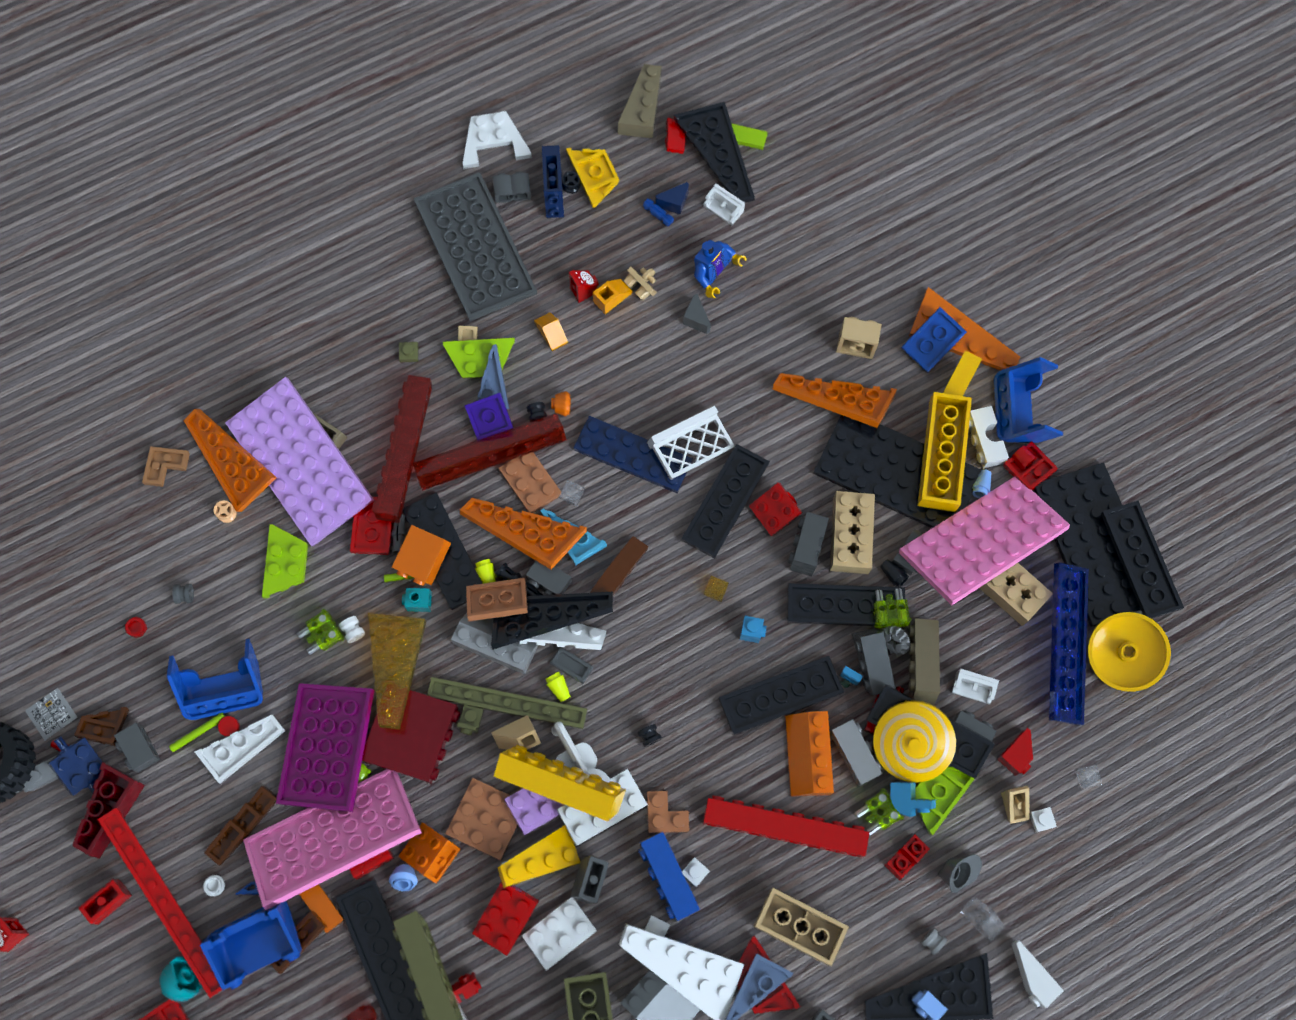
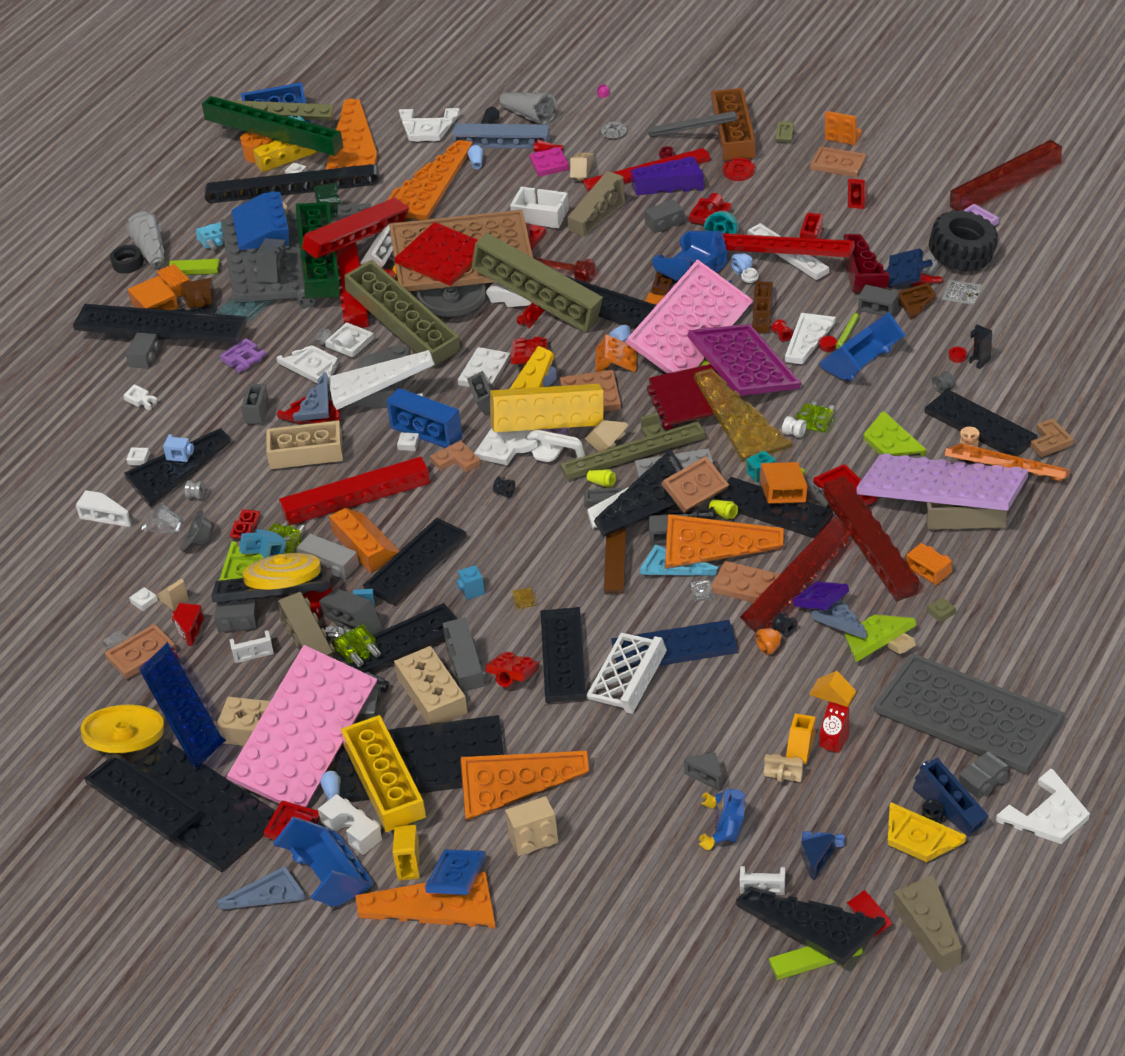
camera: 155 degrees right, 30 degrees down
(115, 603) = (982, 345): none -> black hinge
(147, 919) = (803, 262): none -> white plate
(198, 527) = (993, 429): none -> black plate
(207, 906) = (741, 262): none -> light blue cone
(254, 772) = (779, 327): none -> red bush
(379, 396) = (929, 563): none -> orange brick
(1073, 747) = (137, 650): none -> nougat plate
(1075, 418) = (270, 889): none -> sand blue wing

